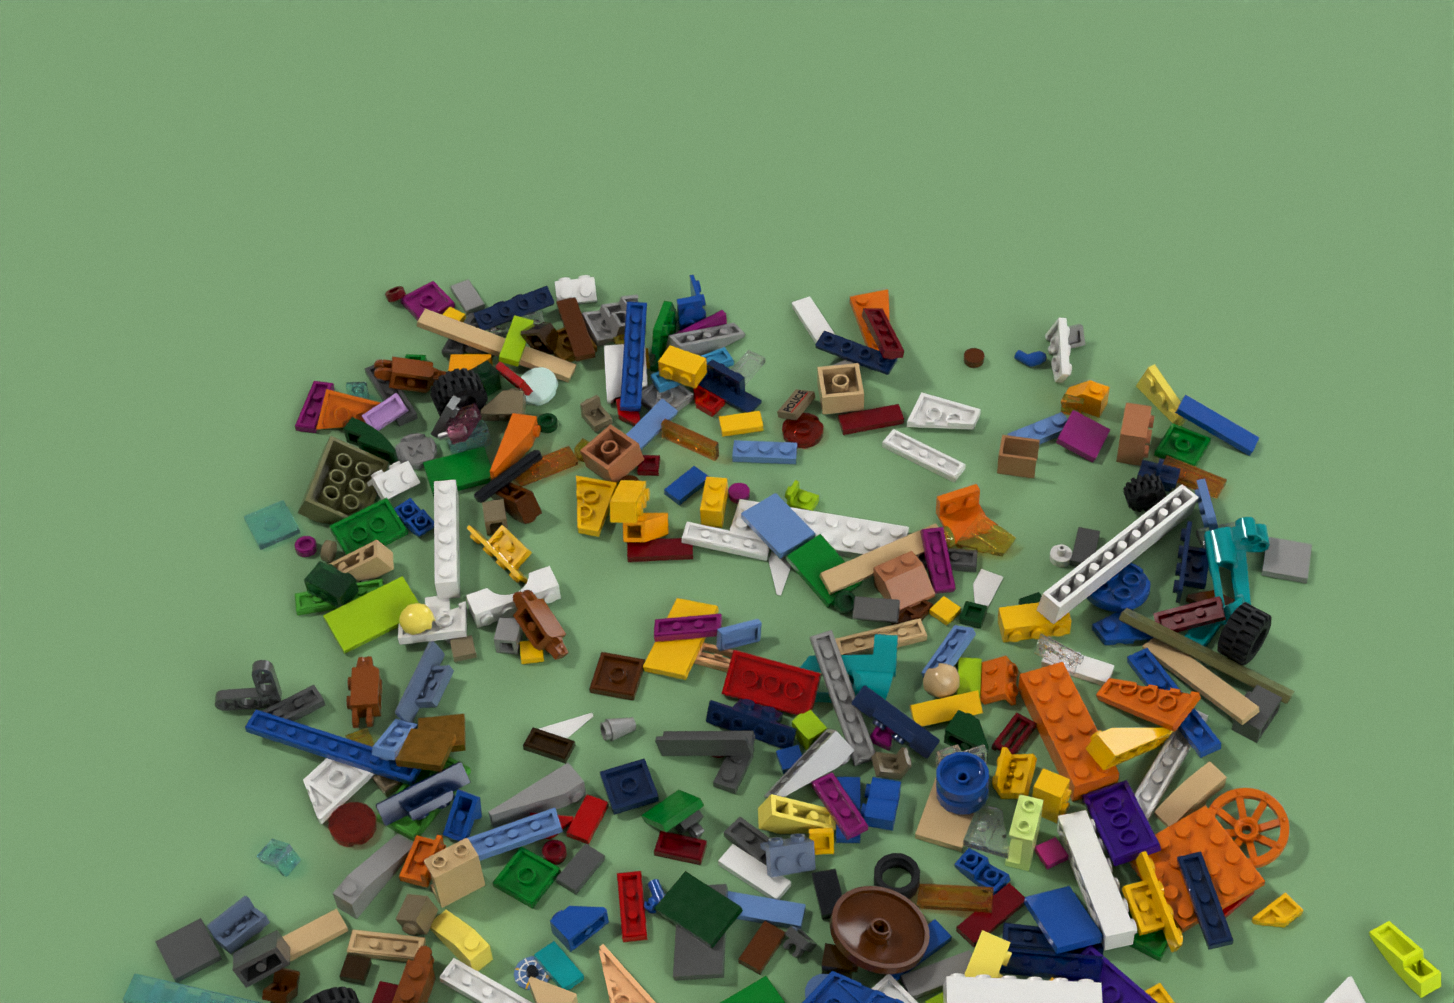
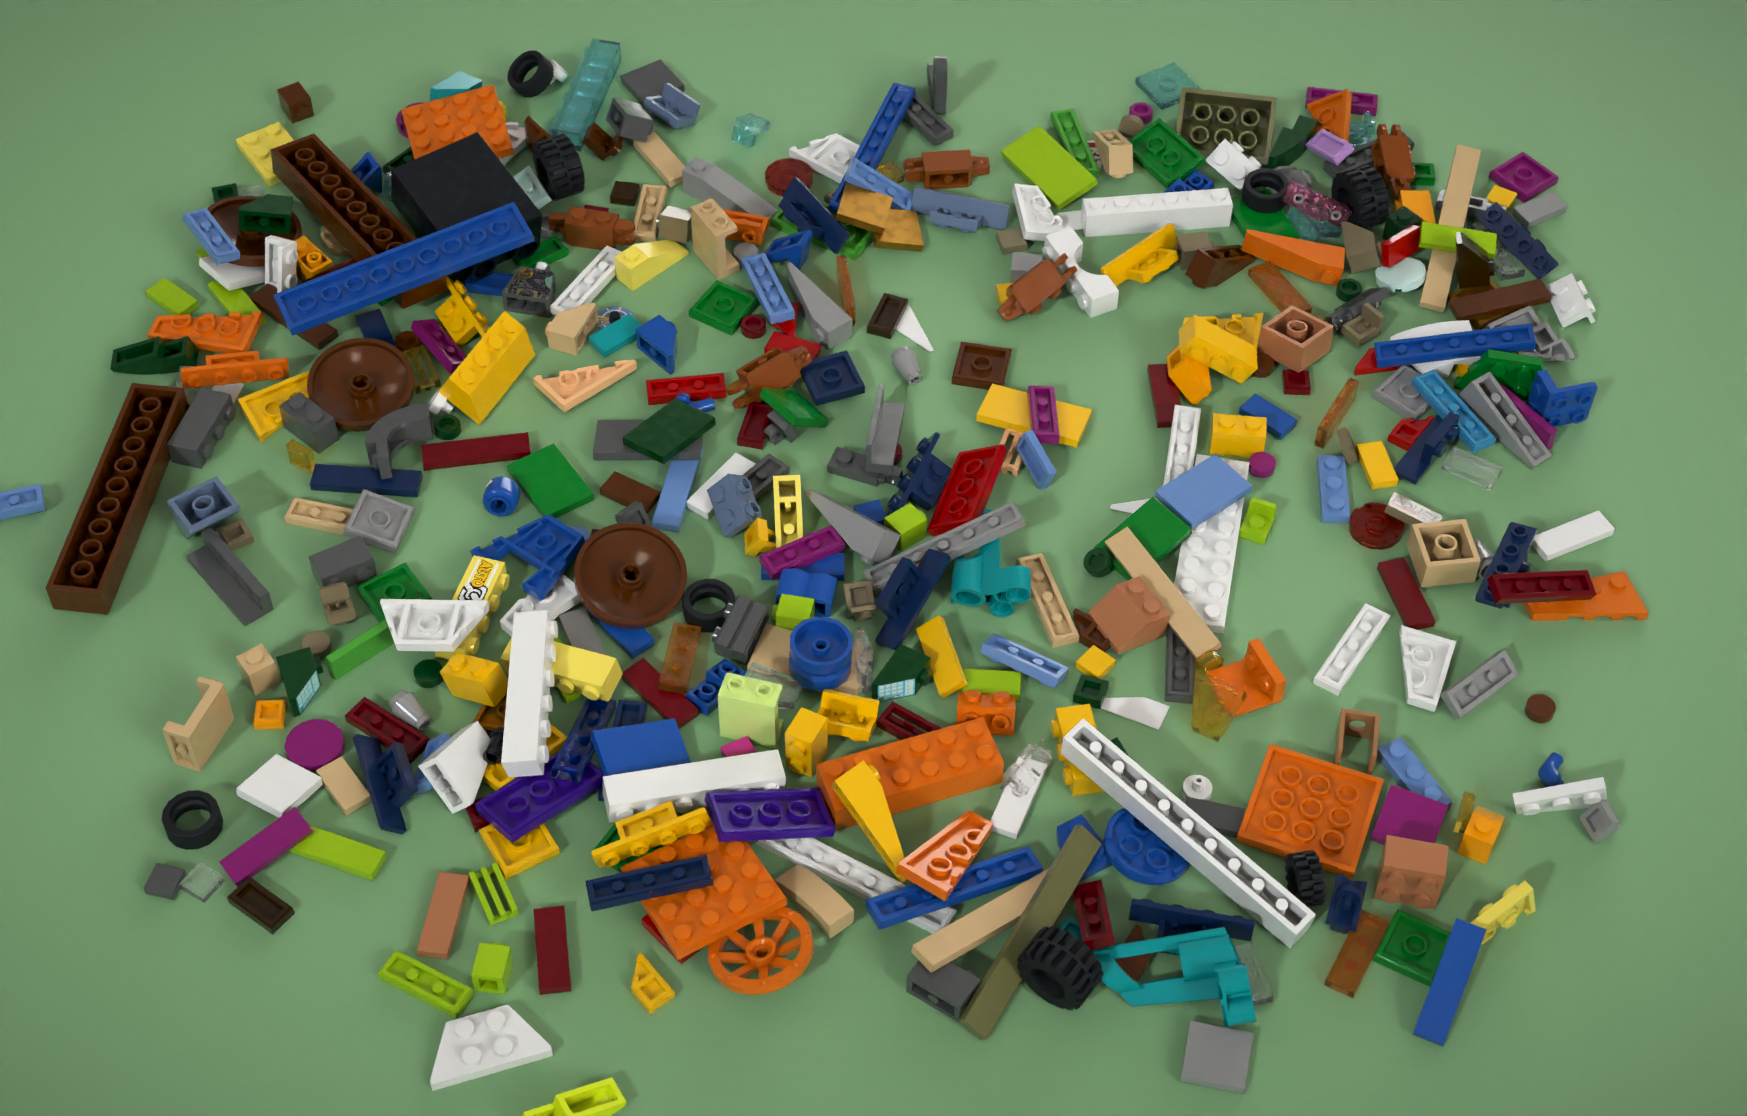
camera: 85 degrees right, 0 degrees up
(331, 584) = (1078, 126): clear green brick -> none
(395, 293) = (1528, 146): dark red tile -> none
(416, 618) = (1037, 191): light yellow hair -> none
(433, 448) = (1266, 178): none -> black tyre
(449, 412) = (1324, 183): dark grey plate -> none
(508, 476) = (1251, 253): black axle -> none
(517, 773) = (845, 287): none -> clear orange tile
(571, 417) = (1354, 306): none -> dark grey hinge
(580, 869) = (731, 346): dark grey tile -> none
(632, 830) = (770, 370): none -> dark orange hinge
(650, 424) = (1340, 369): medium blue tile -> none
(682, 367) = (1441, 389): yellow brick -> none
(726, 435) = (1347, 446): none -> dark tan tile
(827, 891) = (700, 547): black tile -> none
(876, 609) = (1084, 588): dark grey tile -> none
(908, 811) = (792, 611): none -> lime brick
(930, 848) = (740, 630): none -> dark grey brick
(938, 560) = (1166, 649): magenta tile -> none
(941, 681) = (976, 647): tan hair -> none
(958, 385) = (1479, 684): none -> light grey plate
(1076, 490) = (1308, 807): none -> orange plate
(1205, 505) = (1288, 953): medium blue plate -> none
(1256, 983) = (552, 950): none -> dark red tile

